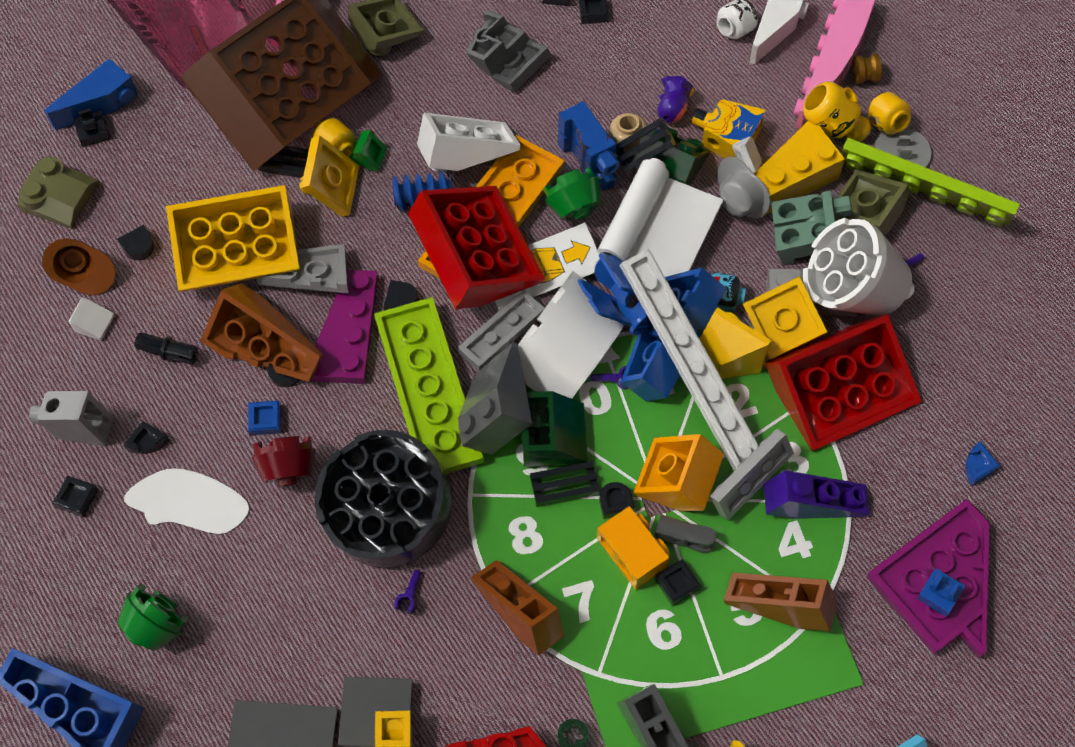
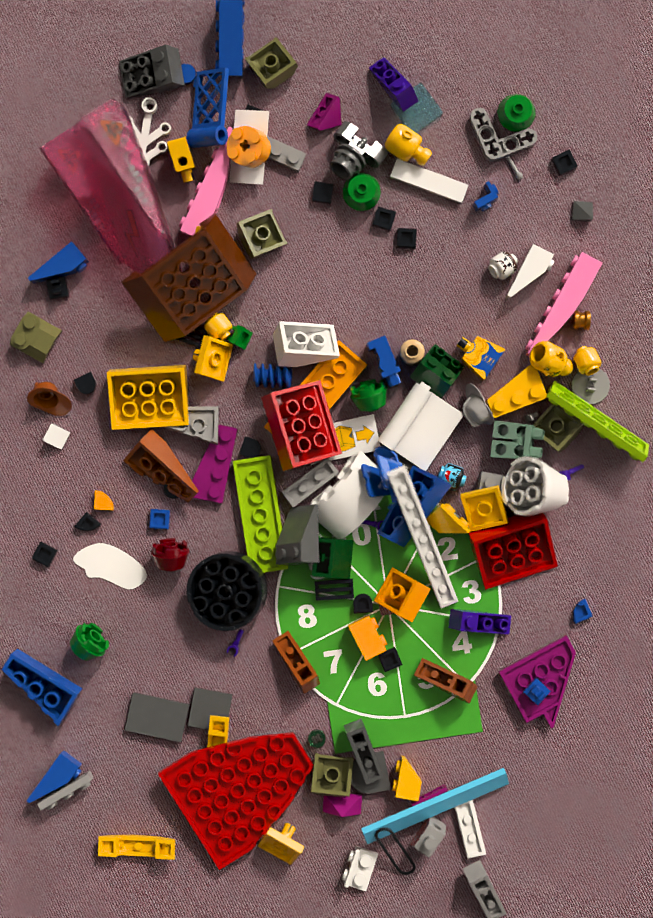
camera: 10 degrees right, 25 degrees up
(73, 417) = (43, 507): light grey torso -> none
(166, 348) = (102, 464): black axle -> none
(169, 404) = (102, 501): none -> light orange tile
(506, 52) = (340, 267): dark grey slope -> none
(623, 156) = (409, 378): black tile -> none
(674, 101) = (447, 329): dark purple animal -> none
(685, 534) = (399, 632): dark grey bar -> none
(748, 153) = (486, 385): white slope -> none
(752, 474) = (443, 605): light grey plate -> none

